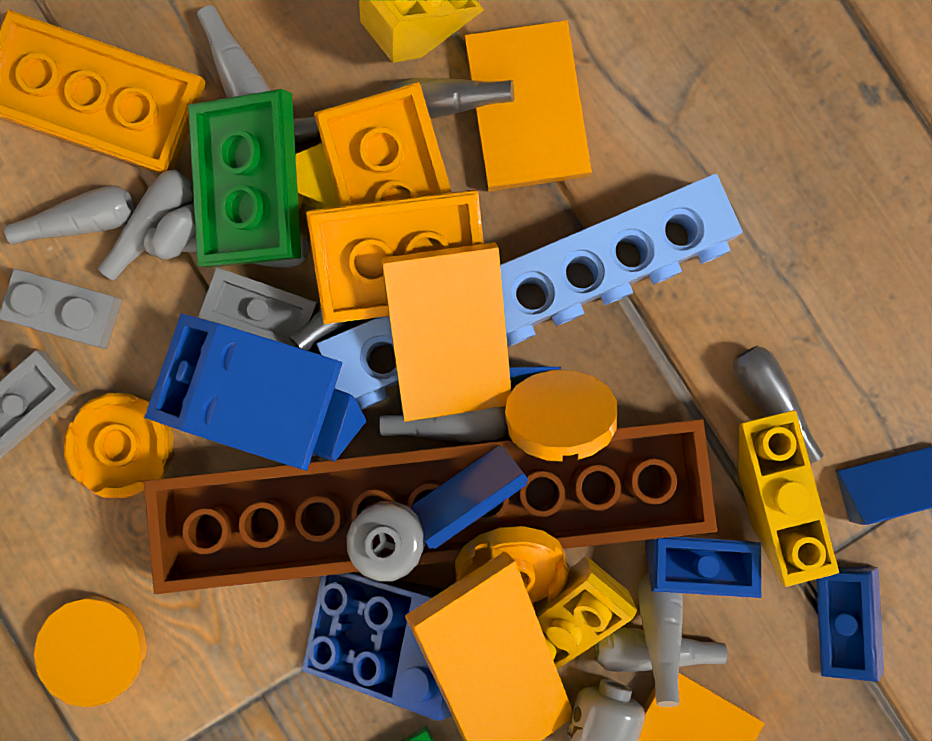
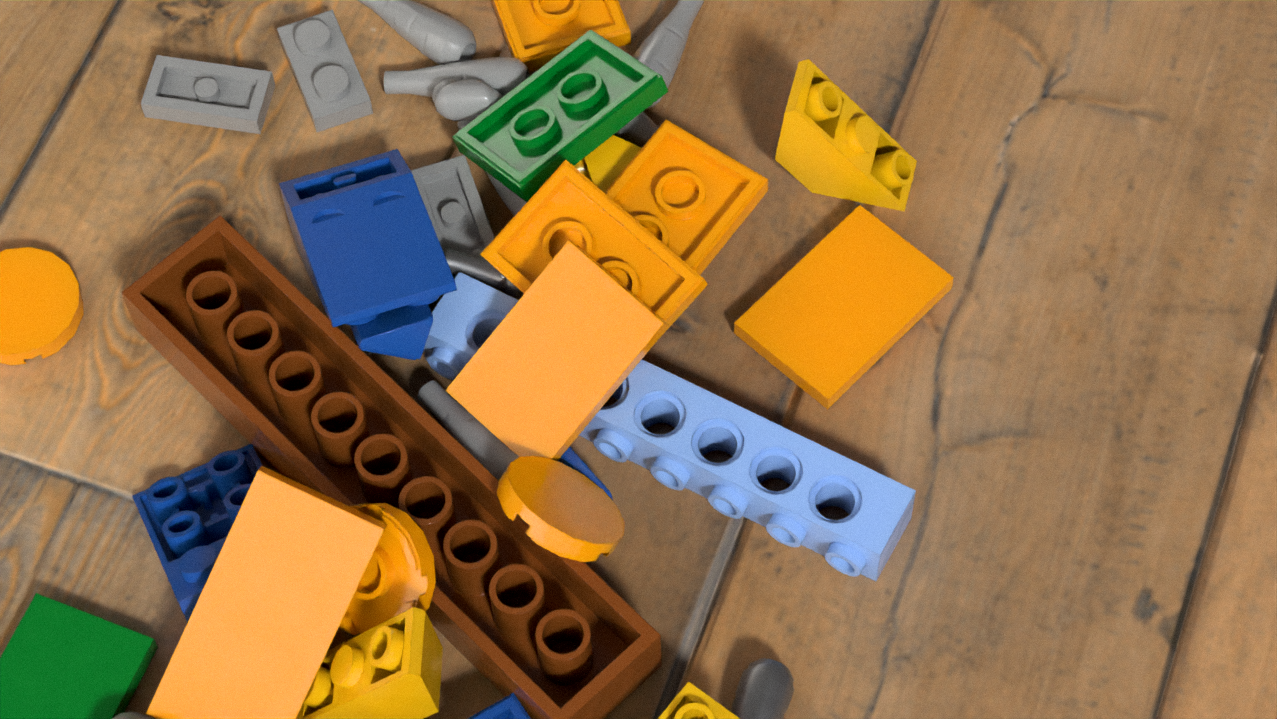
camera: 55 degrees right, 25 degrees down
(116, 447) = (237, 186): light orange tile -> none
(384, 519) = (319, 422): light grey head -> none
(458, 95) = (786, 226): flat silver piece -> none
(468, 496) = (413, 477): blue slope -> none

